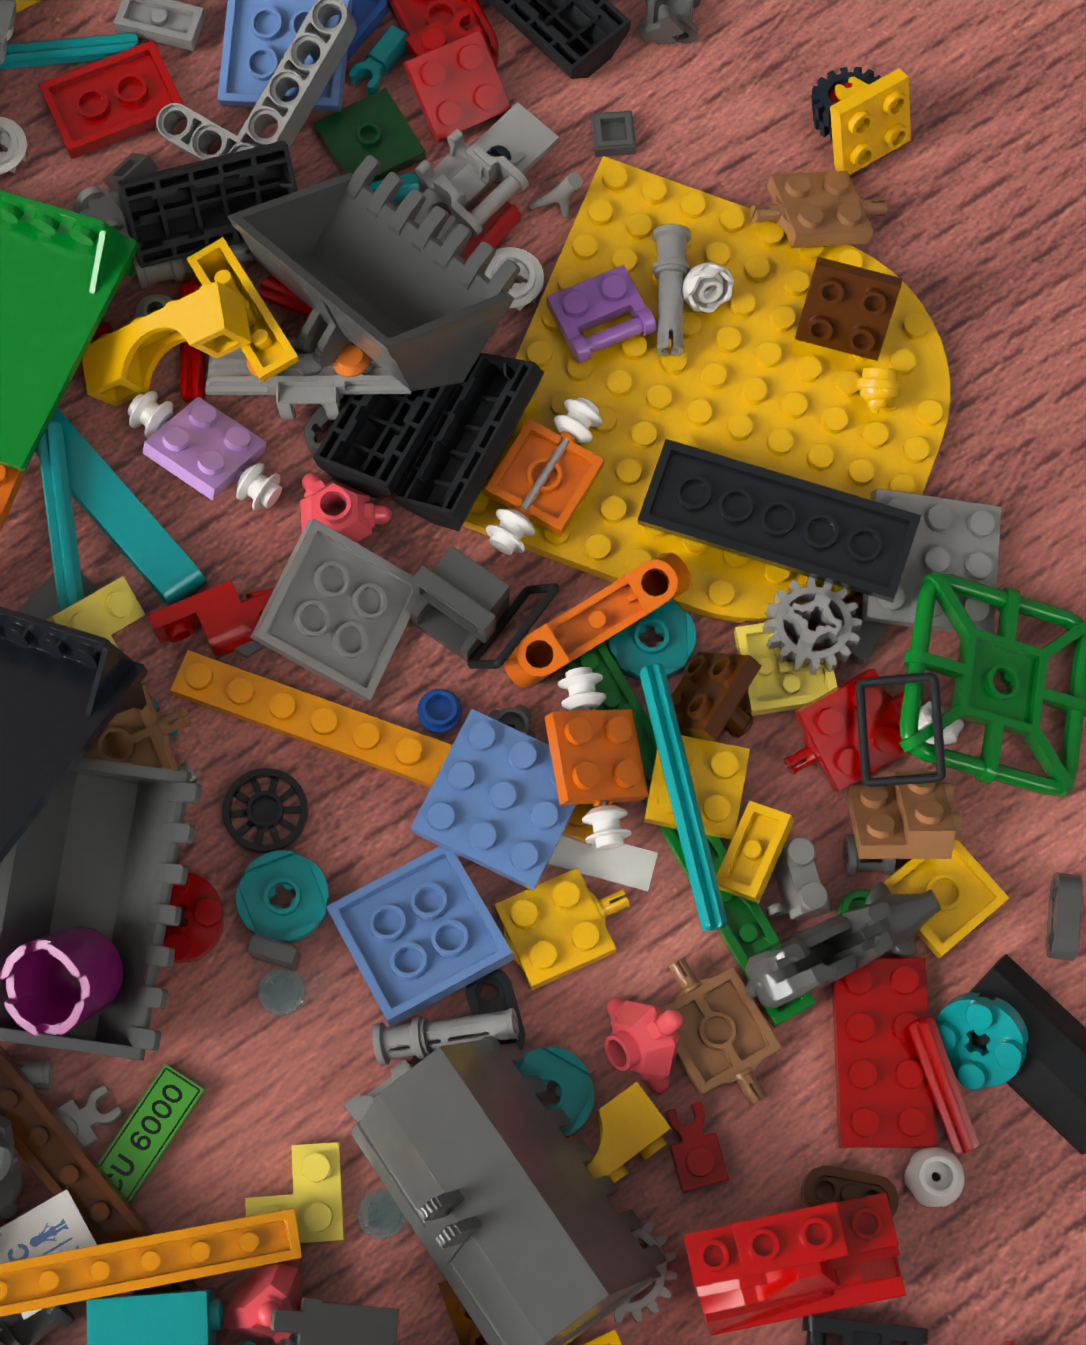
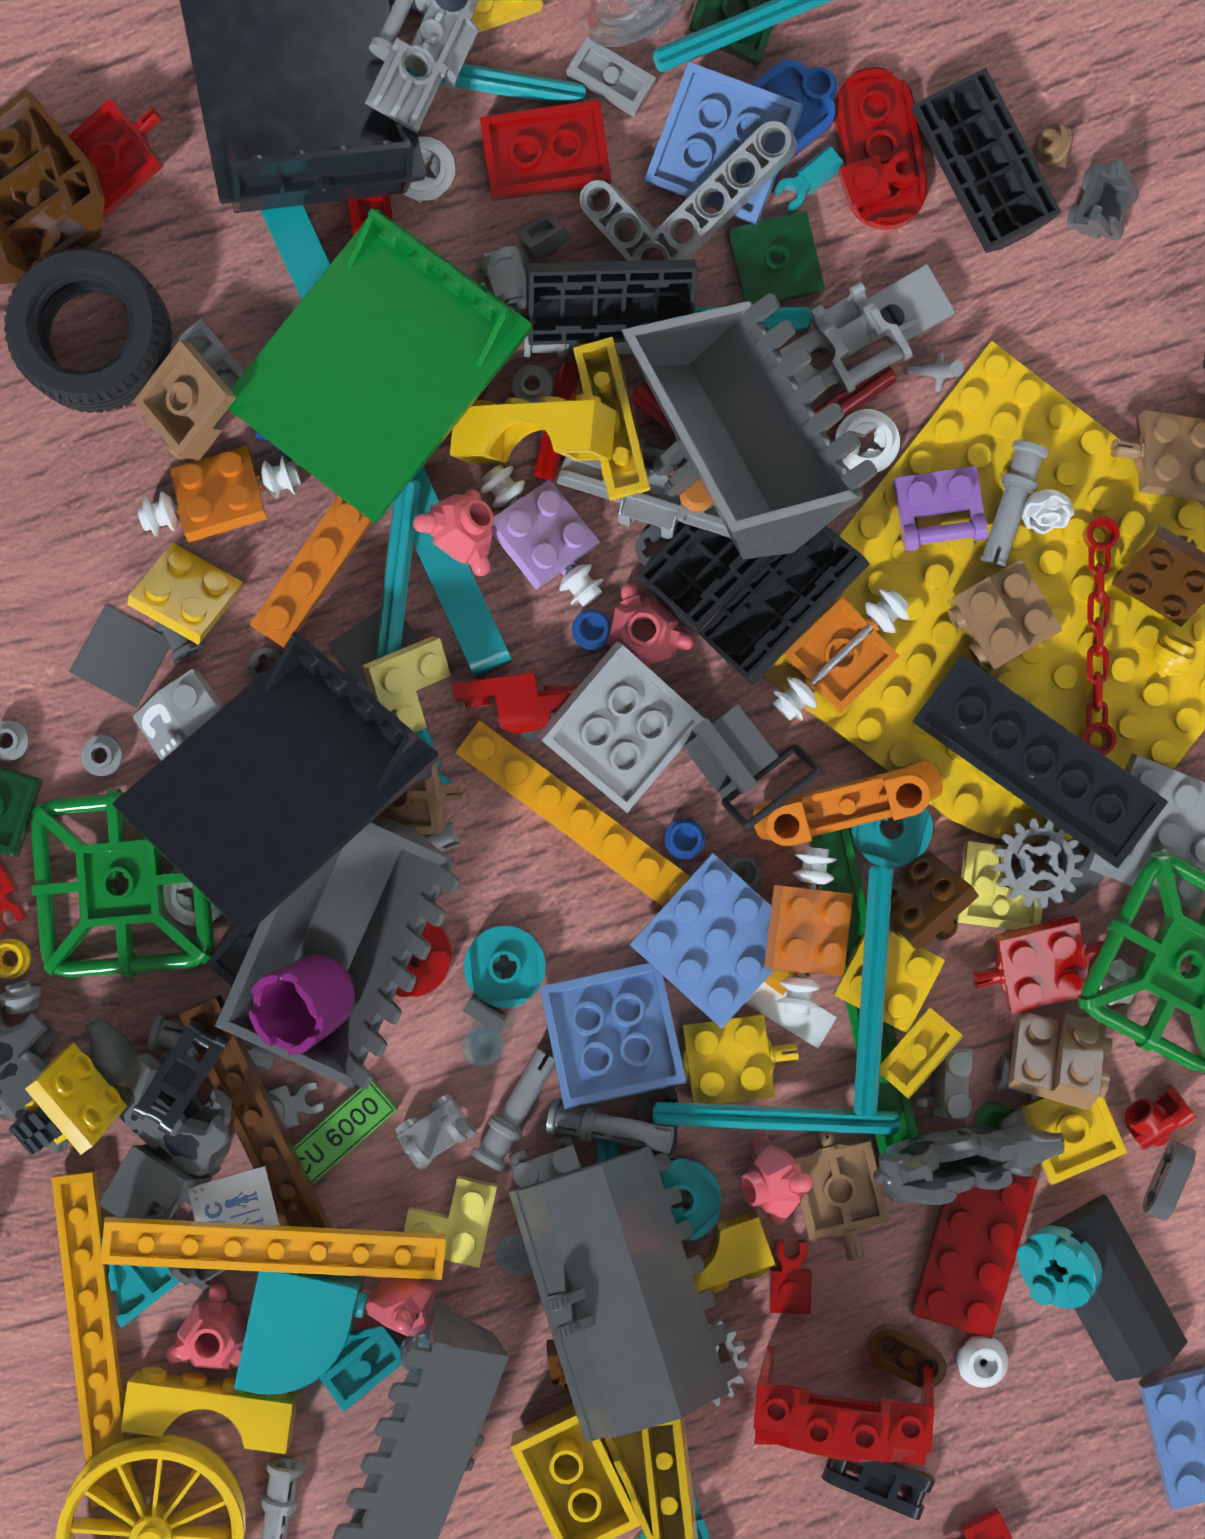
camera: 20 degrees right, 15 degrees up
(116, 457) = (461, 529): none -> coral rock
(251, 1099) = (435, 1132): none -> light grey piece
(265, 810) = (509, 883): black wheel -> none
(281, 529) = (591, 629): none -> blue plate
(331, 1070) = (506, 1127): none -> light grey pin
(457, 85) = (875, 230): red plate -> none
(613, 133) = (1008, 317): dark grey tile -> none
(622, 968) = (774, 1118): none -> teal axle
(696, 396) = (1003, 616): none -> medium nougat plate
(776, 289) = (1112, 535): none -> red piece
(937, 728) = (1127, 957): black piece -> none
(943, 1085) = (1015, 1292): red axle -> none
(1026, 858) = (1155, 1122): none -> red plate

